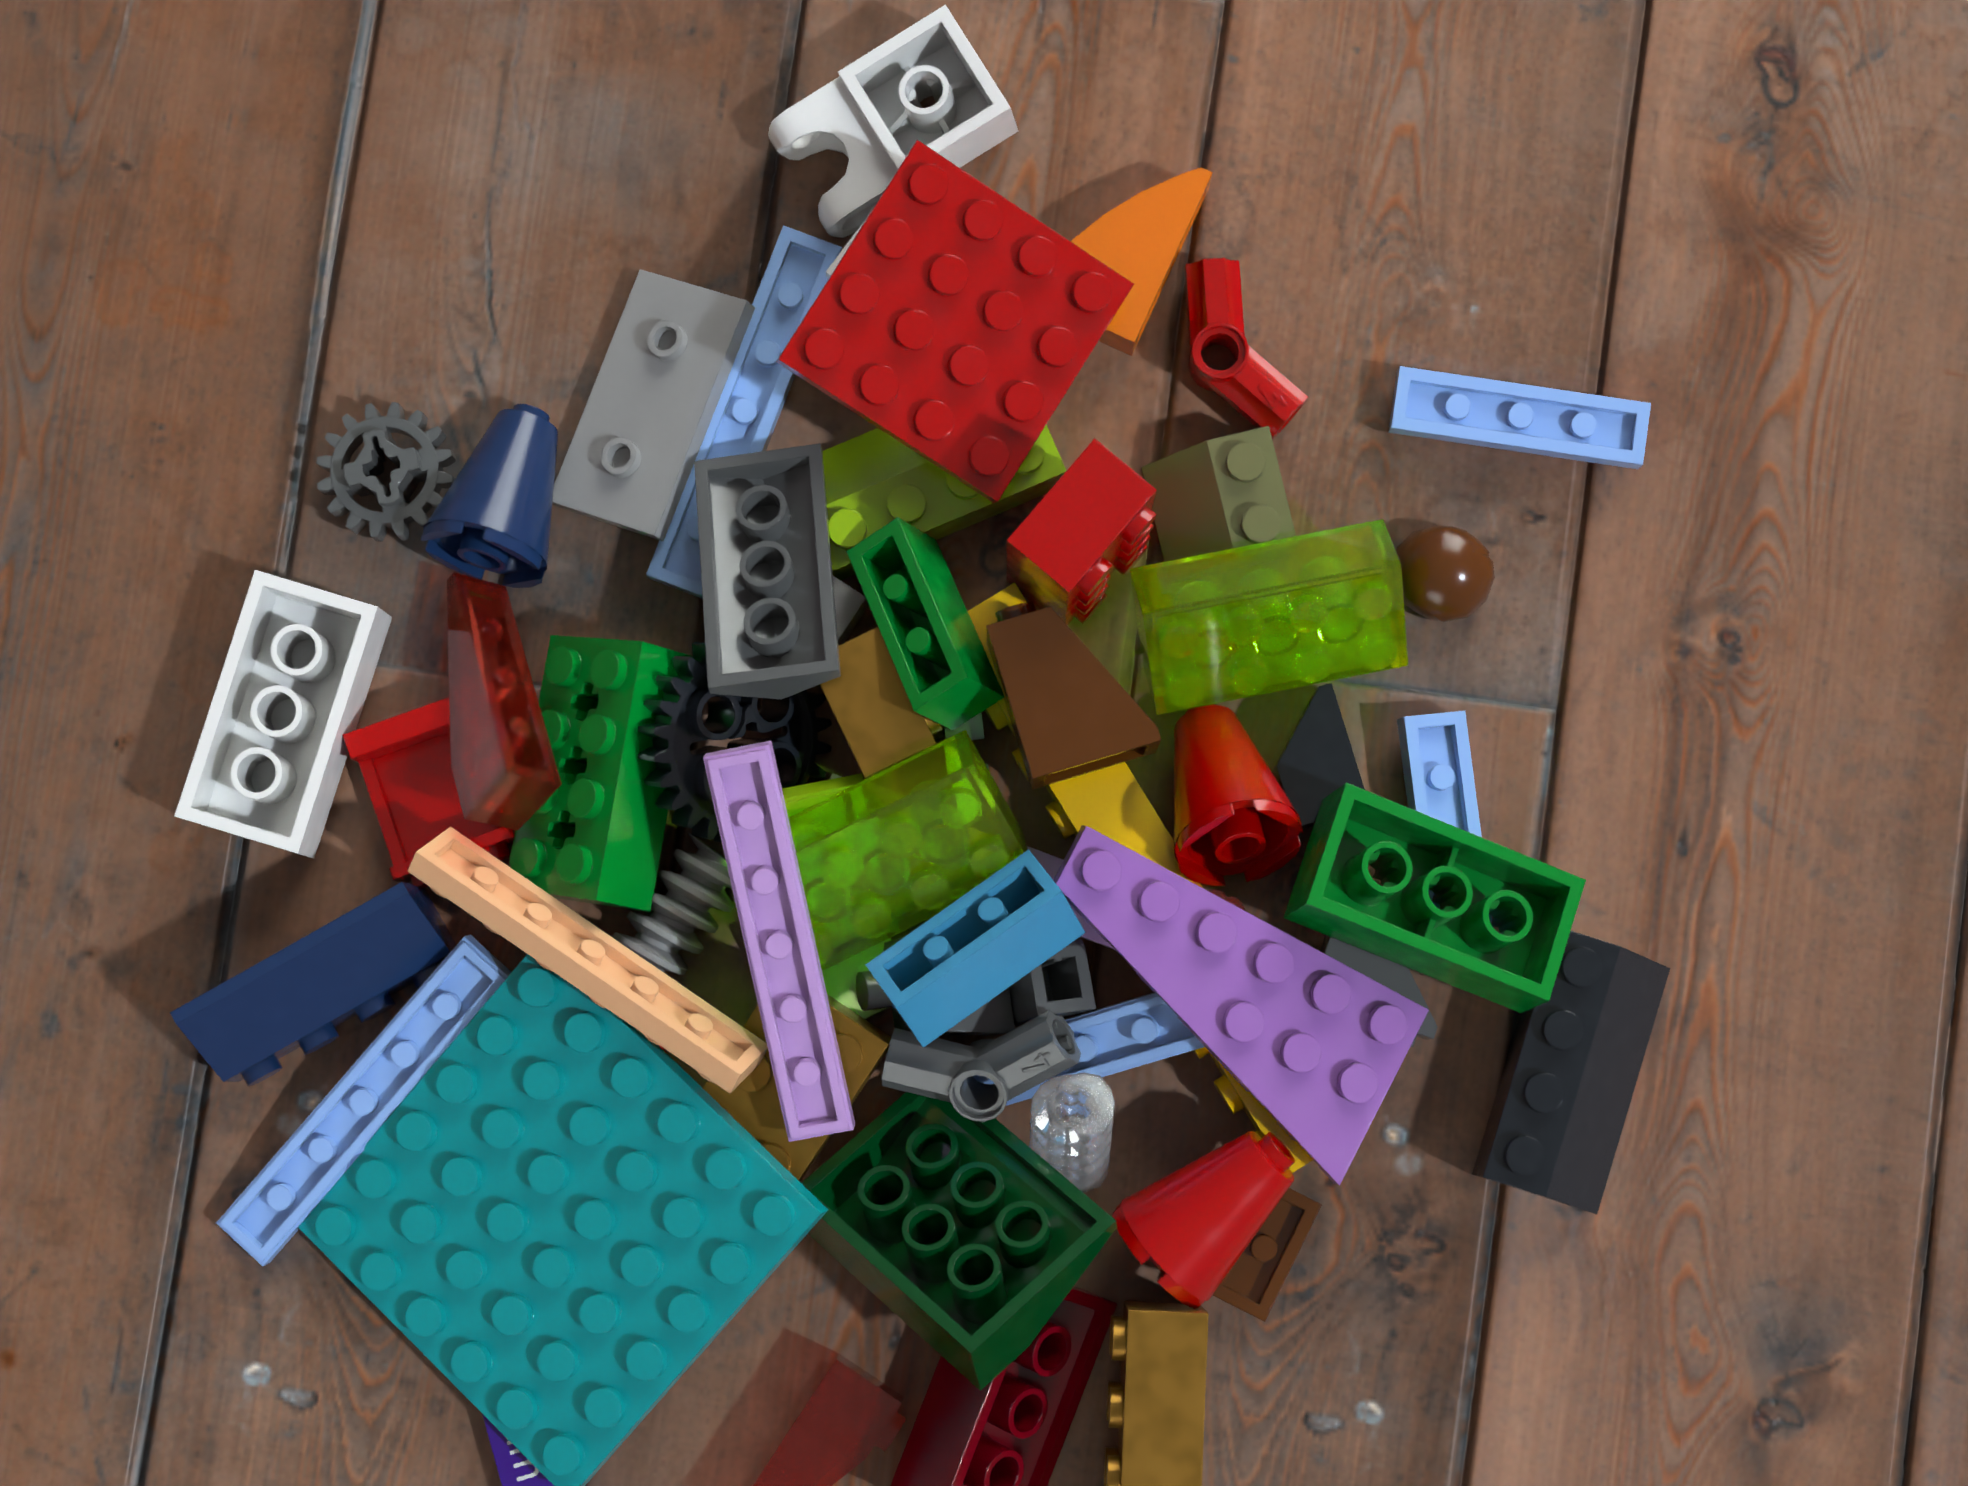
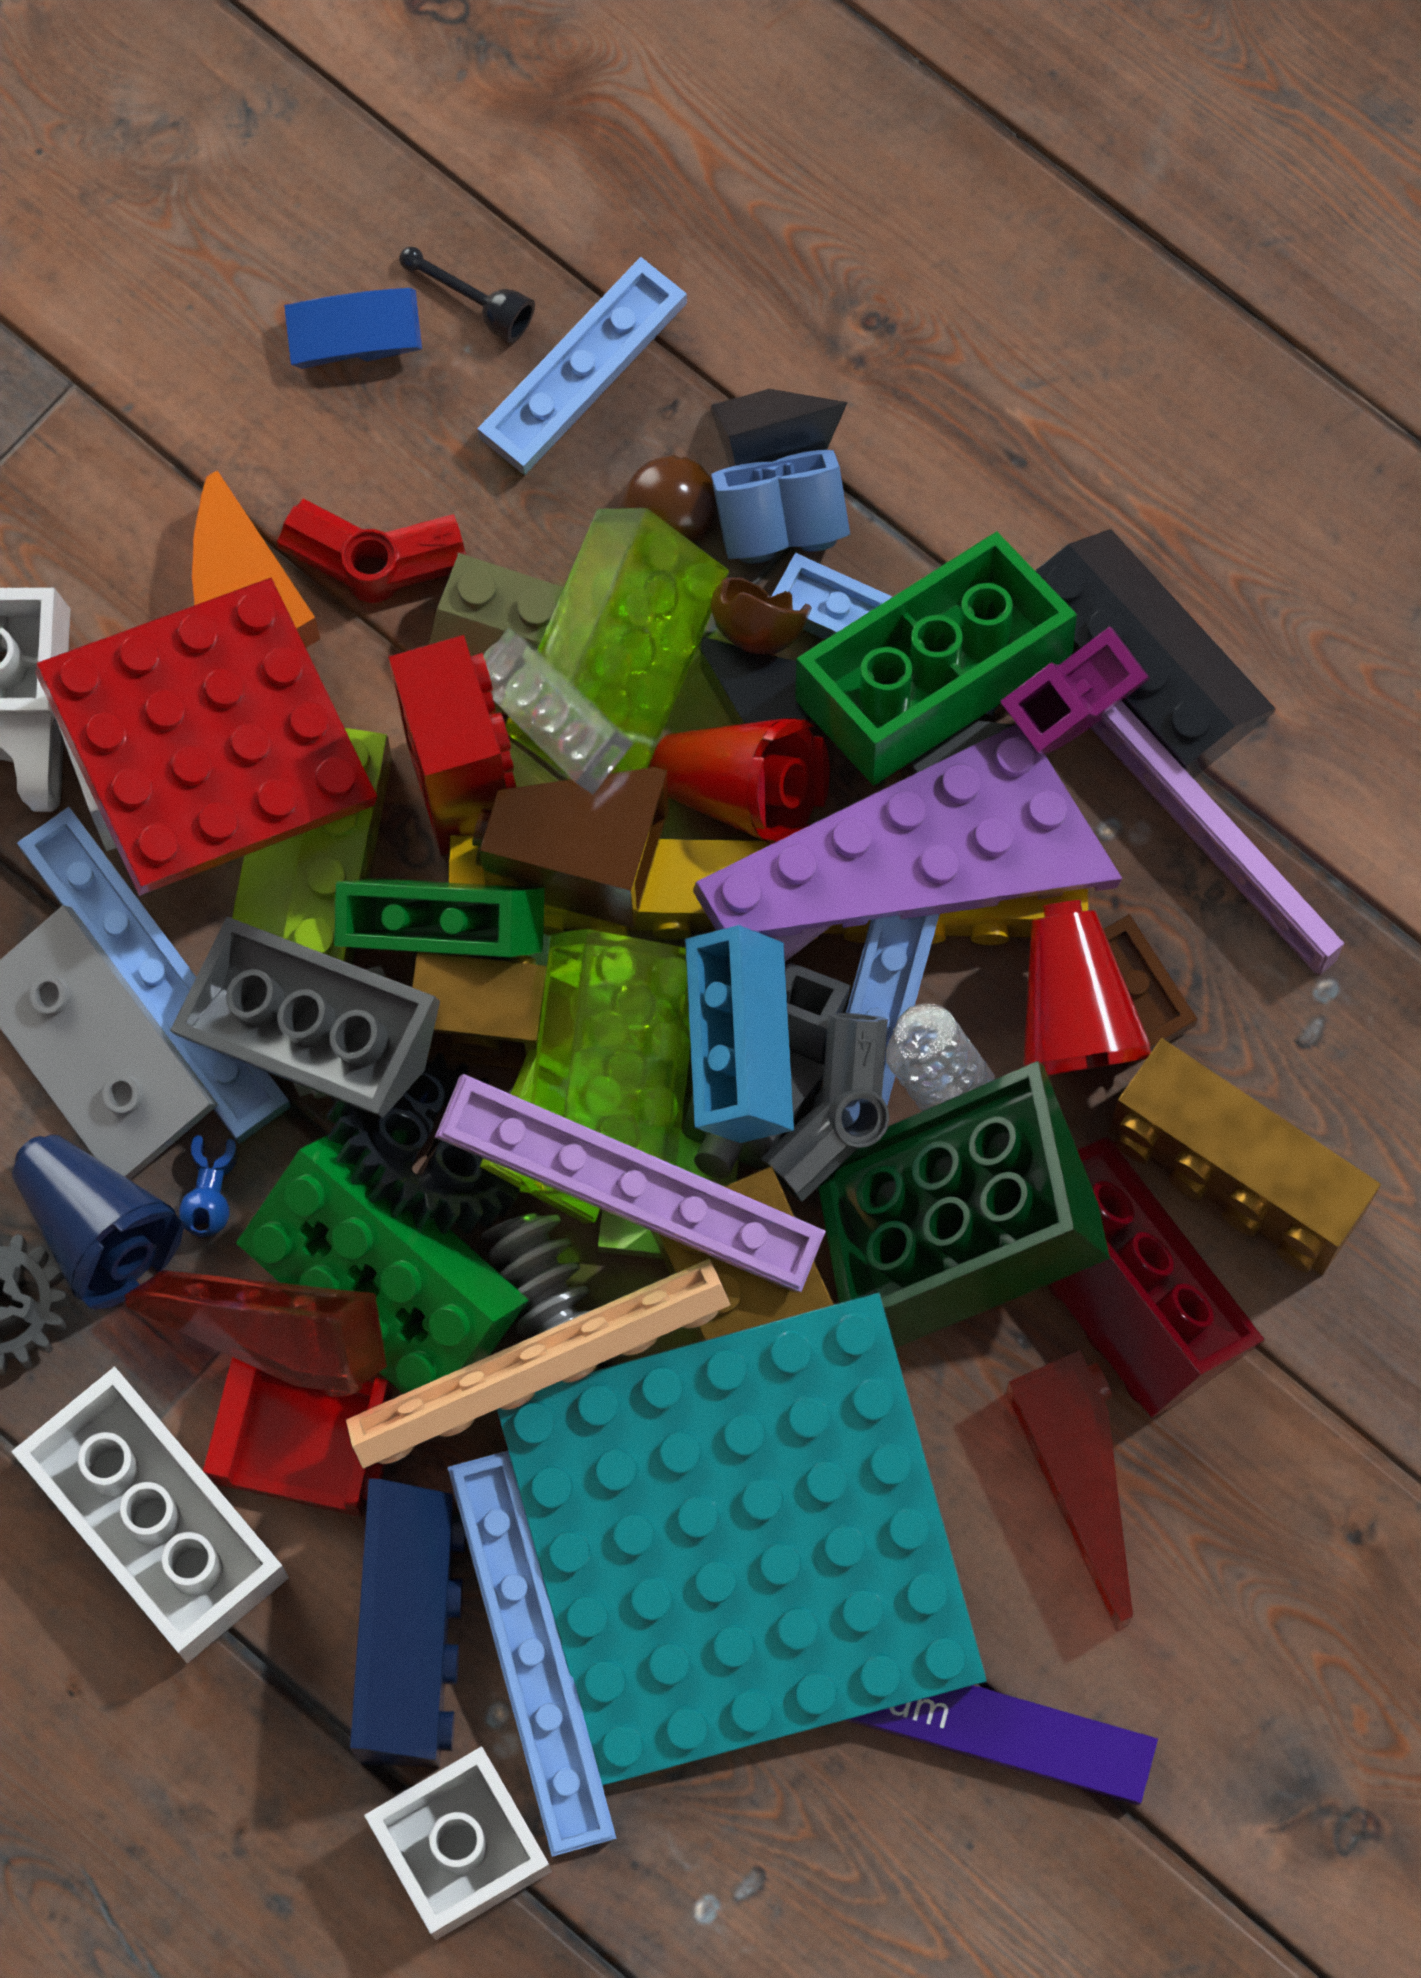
camera: 60 degrees left, 10 degrees down
(169, 1143) = (458, 1843): none -> white brick
(583, 583) = (206, 1202): none -> blue arm
(1159, 603) = (554, 712): none -> clear plate
(1375, 717) = (754, 619): none -> reddish brown hair
(1424, 200) = (353, 326): none -> blue slope
(1448, 1217) = (1219, 838): none -> lavender tile
(1479, 1041) = (1075, 694): none -> magenta brick
(1498, 671) = (781, 505): none -> medium blue brick
(1525, 318) = (504, 311): none -> black hinge
(1556, 629) = (775, 425): none -> black slope

